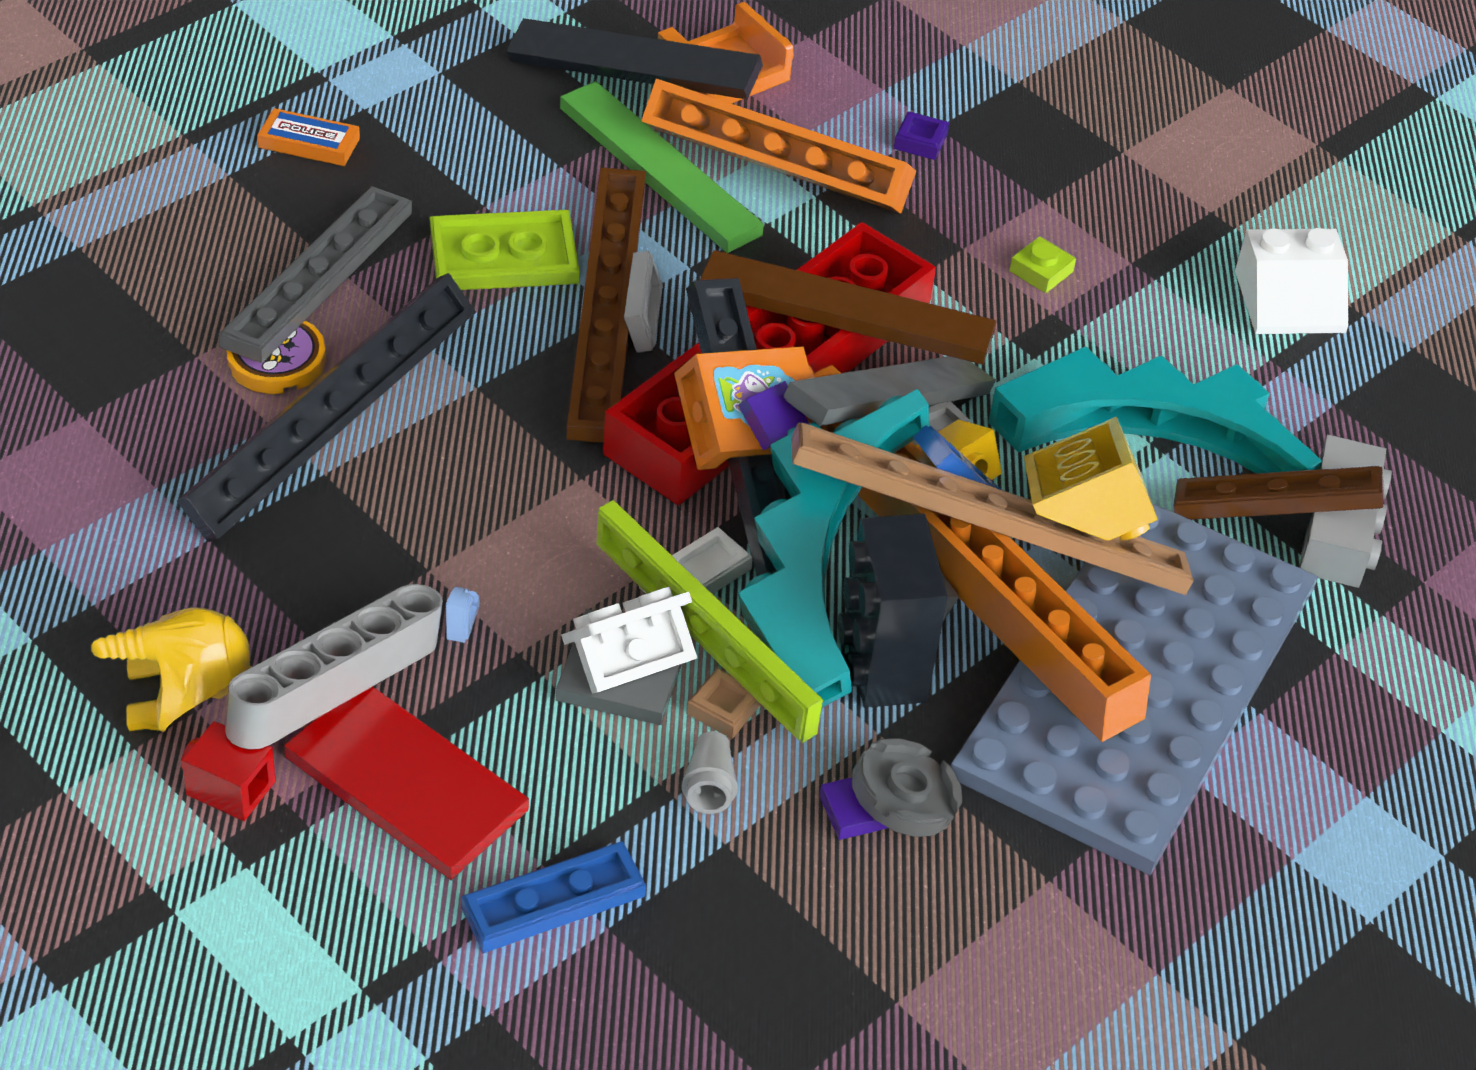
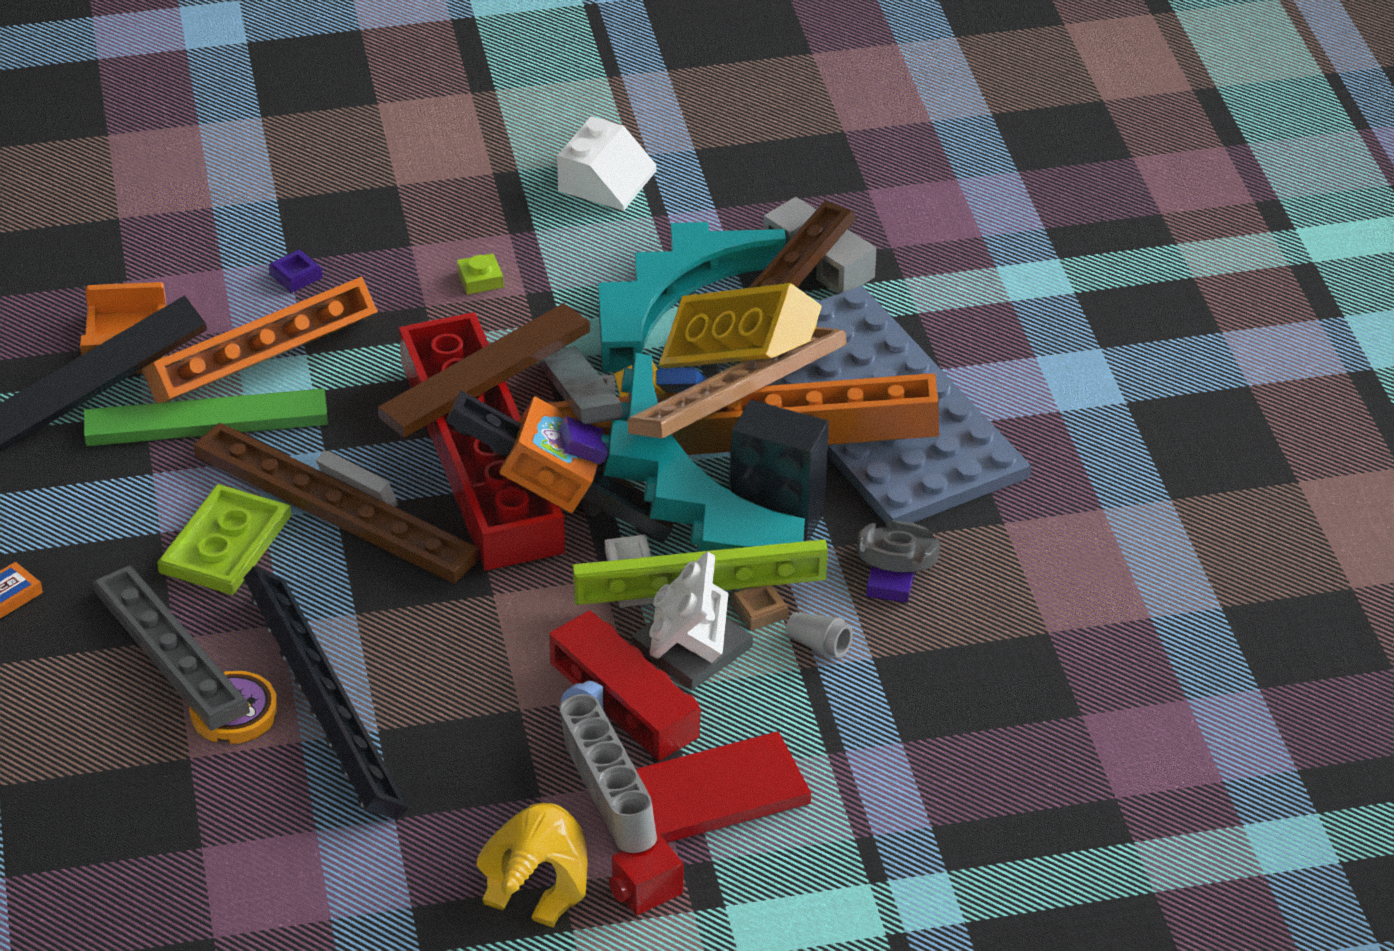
camera: 55 degrees left, 5 degrees down
(502, 634) = (633, 689): none -> red brick
(552, 896) = (862, 756): blue tile -> none

